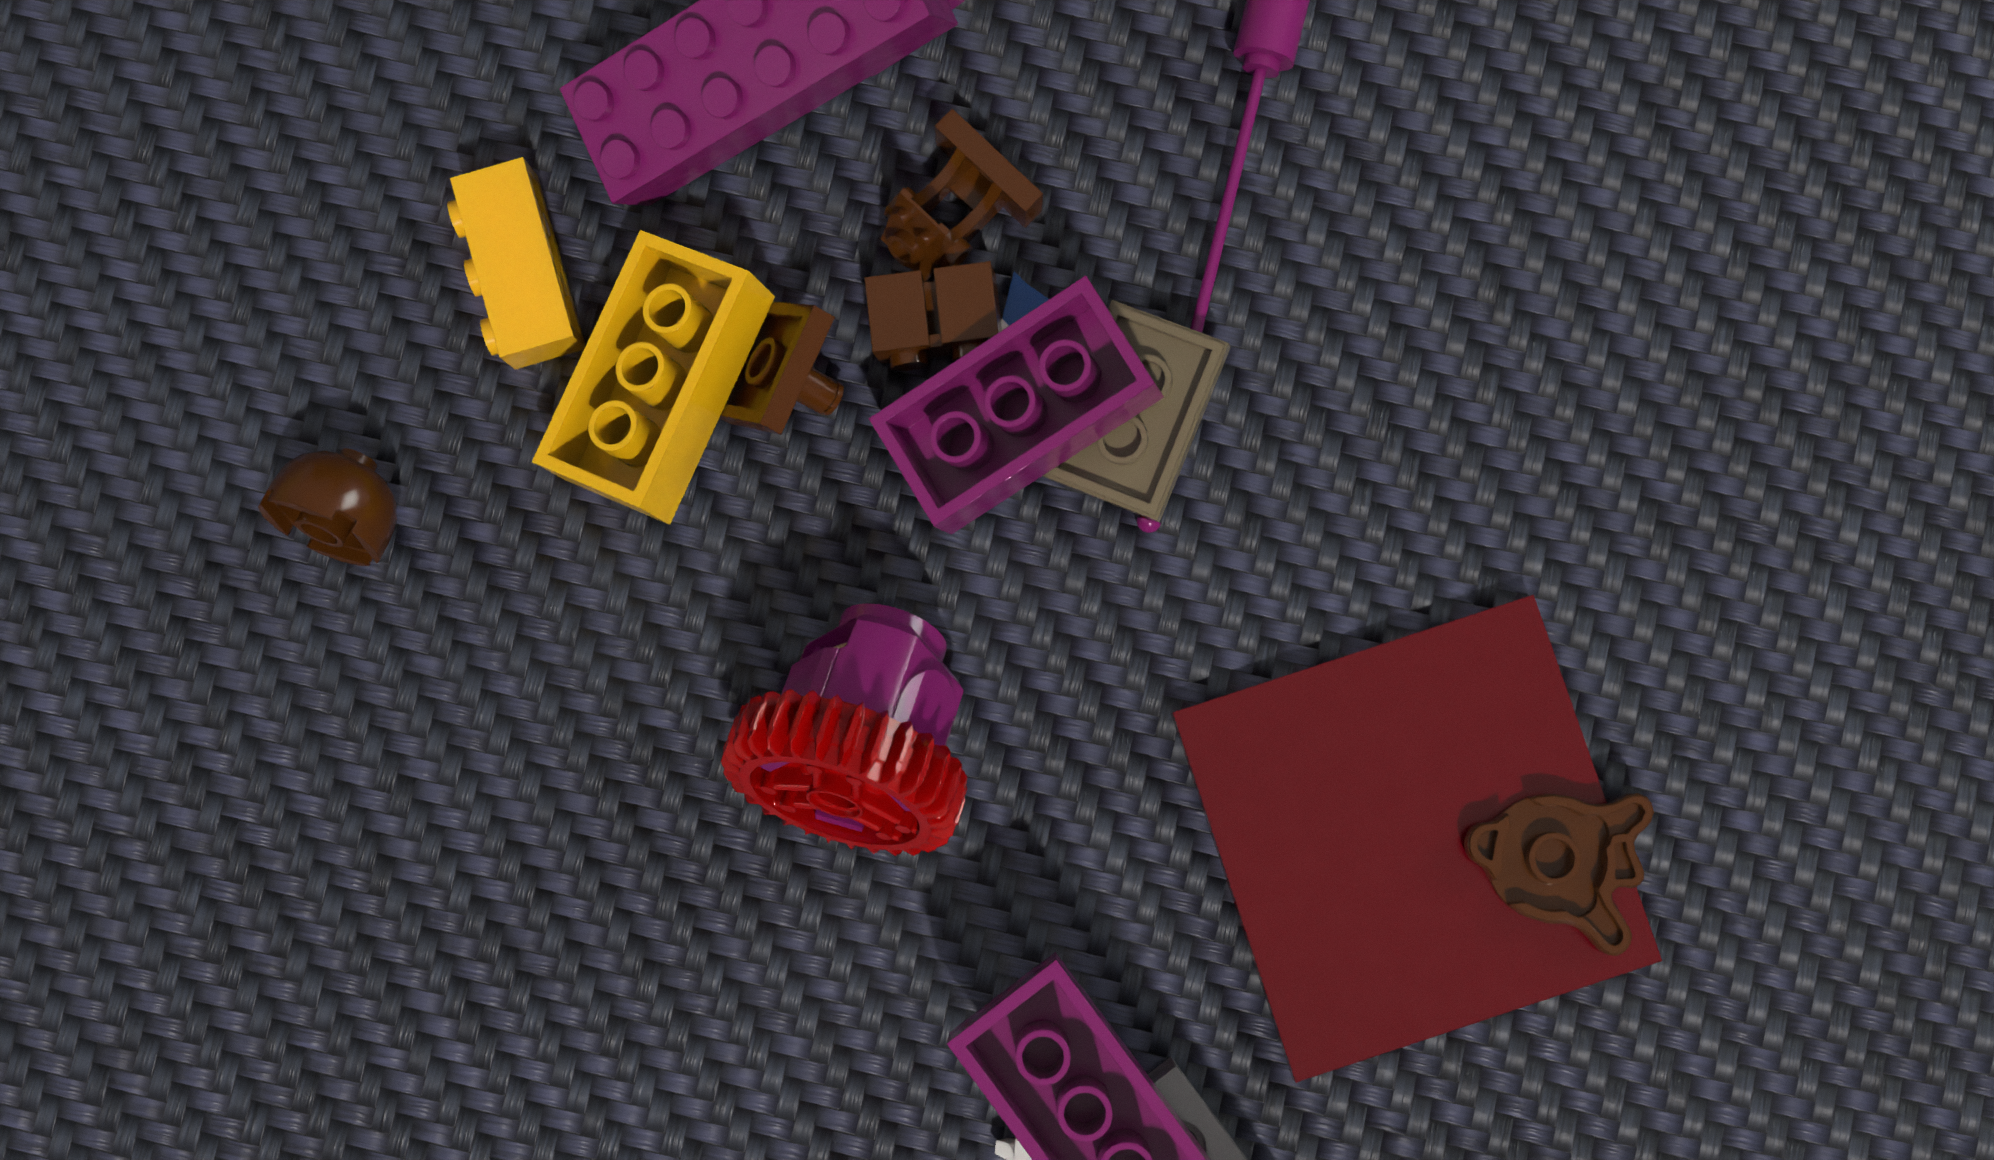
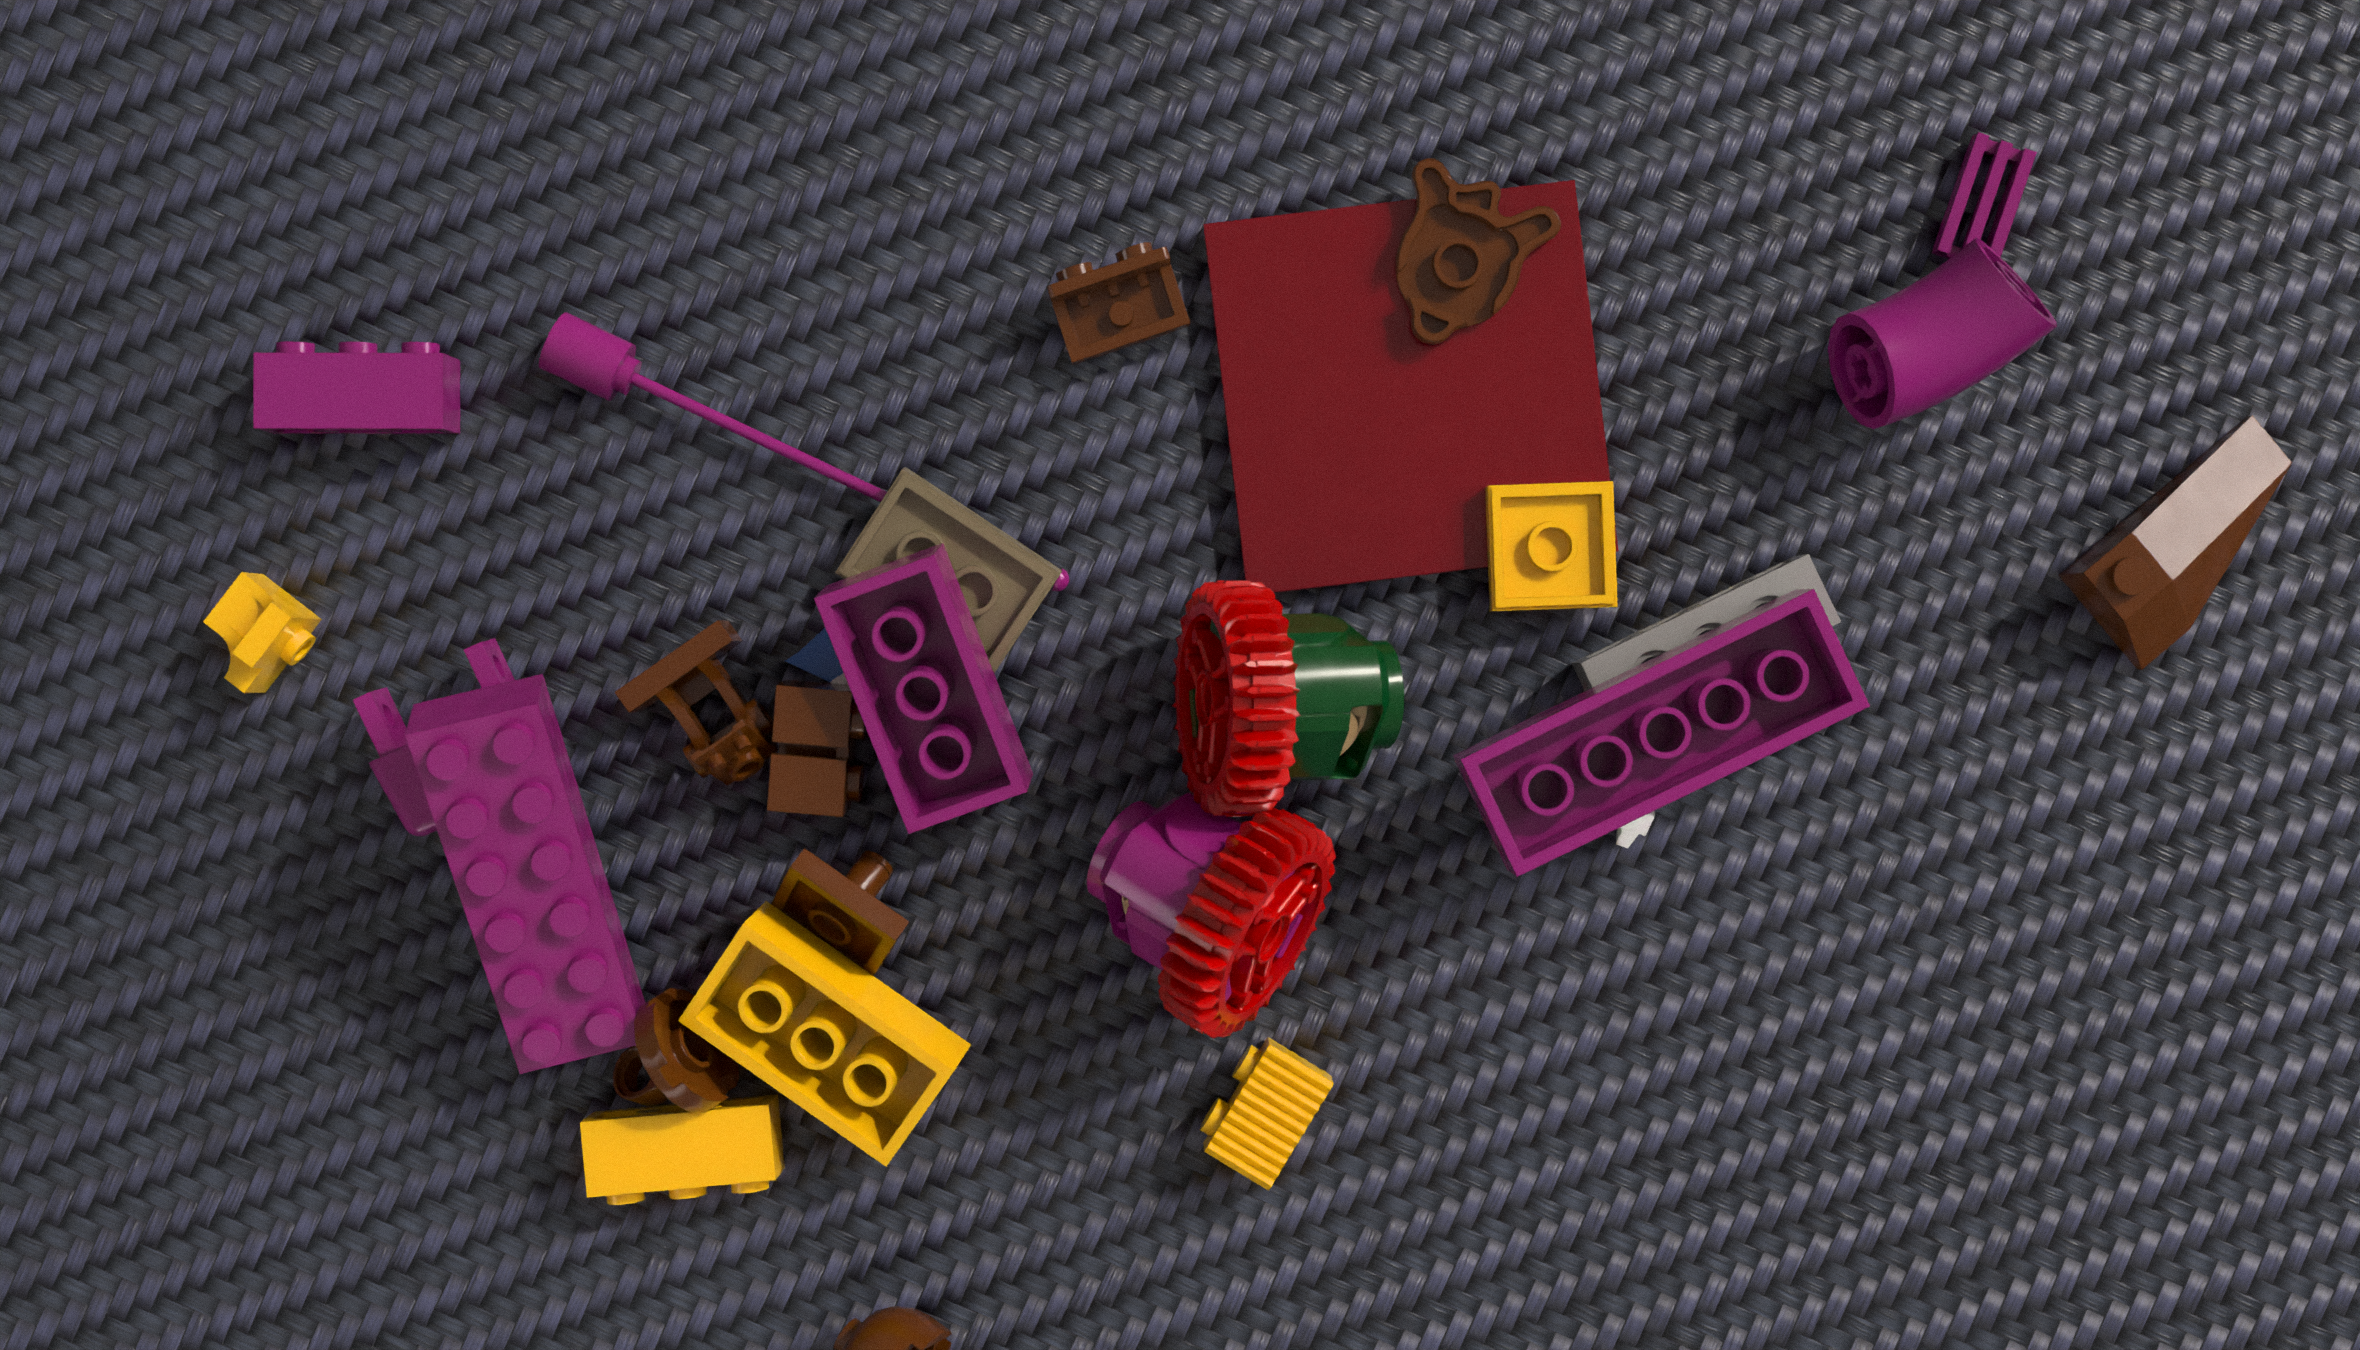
camera: 80 degrees left, 5 degrees up
(600, 234) = (676, 1058): none -> reddish brown tile
(656, 834) = (1265, 1112): none -> yellow brick
(1079, 760) = (1276, 697): none -> red piece
(1287, 1012) = (1551, 546): none -> yellow tile
(1438, 524) = (1117, 302): none -> reddish brown bracket

